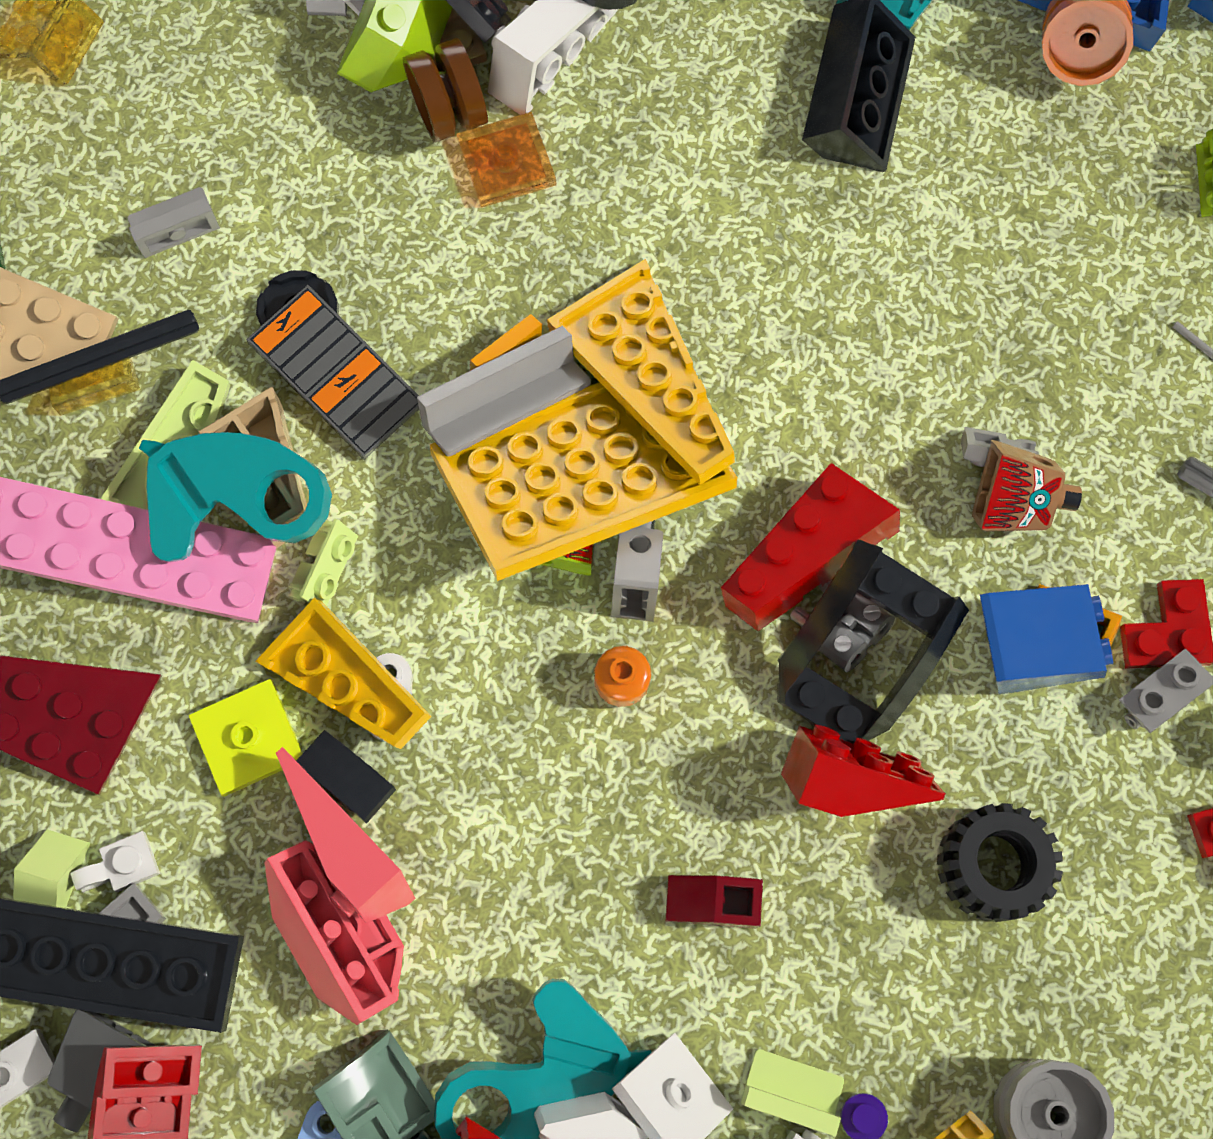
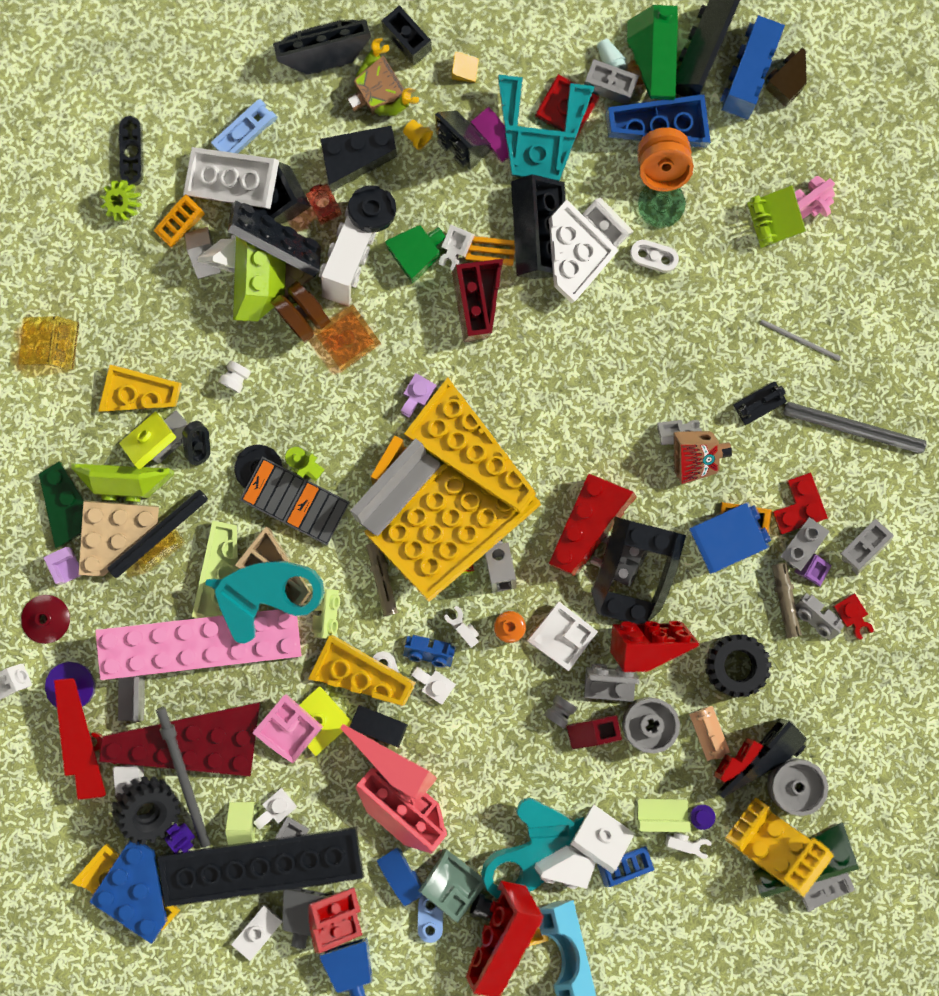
camera: 10 degrees left, 10 degrees up
(76, 261) = (122, 481): none -> lime wedge
(136, 210) = (147, 440): none -> neon yellow plate
(151, 139) = (137, 390): none -> yellow wing
(189, 732) = (288, 729): none -> bright pink plate
(211, 231) = (196, 443): none -> black plate
(291, 1054) = (400, 876): none -> blue slope
(307, 163) = (234, 376): none -> white wheel
(369, 313) = (303, 463): none -> lime hips
(432, 585) = (388, 607): none -> dark tan pin
(455, 670) = (418, 650): none -> blue hinge
(467, 739) = (435, 686): none -> white plate
(548, 666) = (467, 632): none -> white plate
(587, 271) = (418, 392): none -> lavender plate
(654, 62) = (415, 250): none -> green torso
(665, 847) = (560, 711): none -> flat silver wheel
(707, 721) = (562, 636): none -> white plate
(719, 70) = (457, 243): none -> white plate
(728, 149) = (476, 296): none -> dark red wedge
(765, 827) = (609, 683): none -> light grey bracket
(772, 92) = (491, 241): none -> light orange tile
(844, 916) = (665, 725): none -> light grey wheel
(907, 129) = (576, 251): none -> white plate
(916, 970) = (709, 733): none -> light nougat hinge
(950, 1035) = (730, 766): none -> red slope
(963, 112) = (607, 222): none -> white slope
(1029, 175) = (655, 253): none -> white plate
(1033, 1030) = (779, 745): none -> black wedge
(1056, 120) = (661, 207): none -> clear green tile
(1111, 771) = (786, 600): none -> dark tan pin
(1145, 446) = (760, 403): none -> black hinge
(1169, 839) = (826, 624): none -> light grey hinge
(1170, 743) = (815, 570): none -> medium lavender slope

